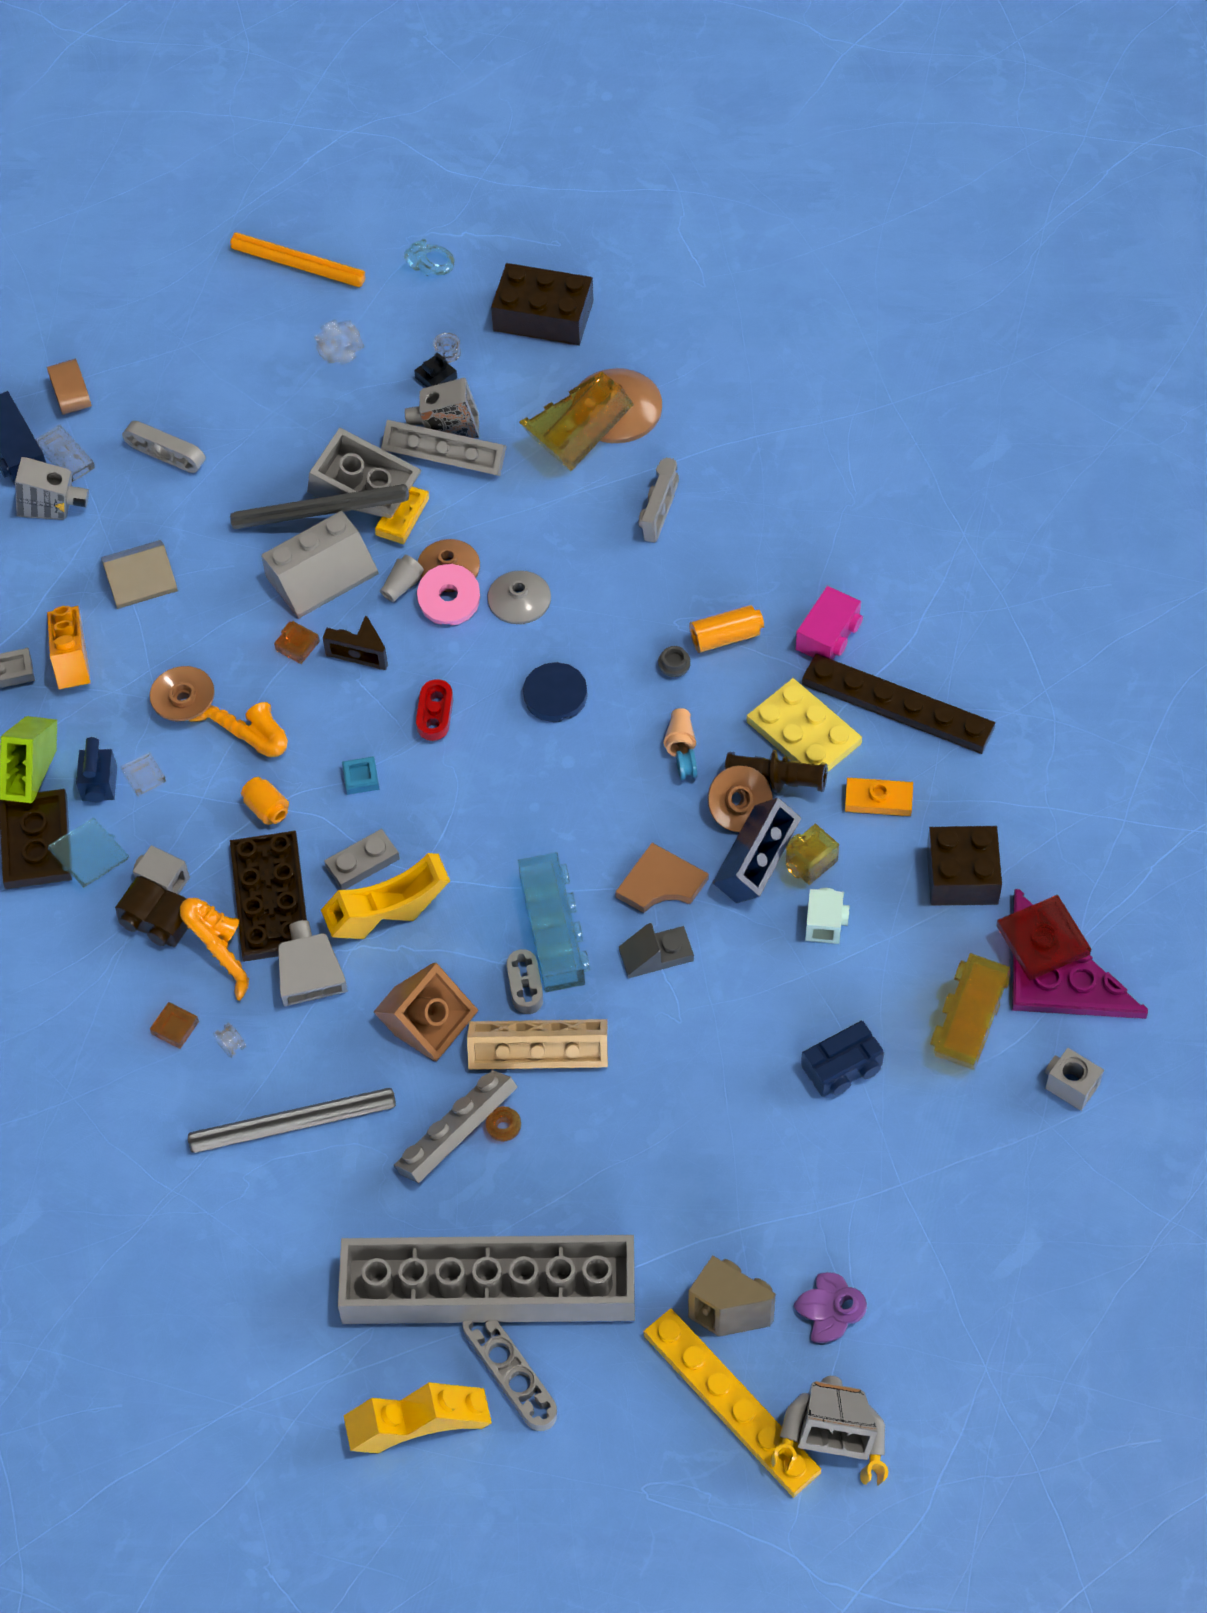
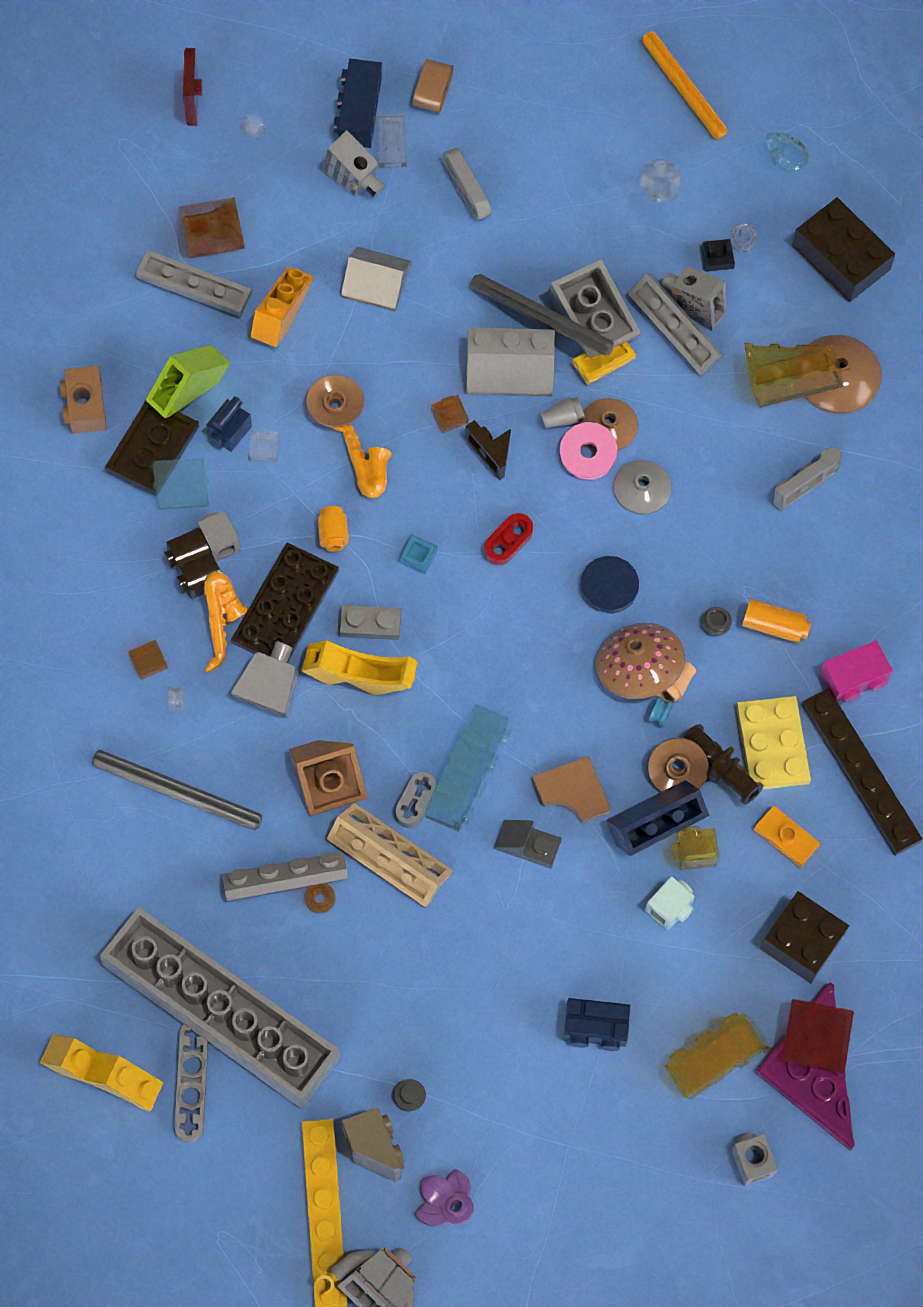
camera: 30 degrees right, 10 degrees up
(634, 734) = (640, 671): none -> medium nougat dish
(724, 1238) = (410, 1095): none -> dark grey plate

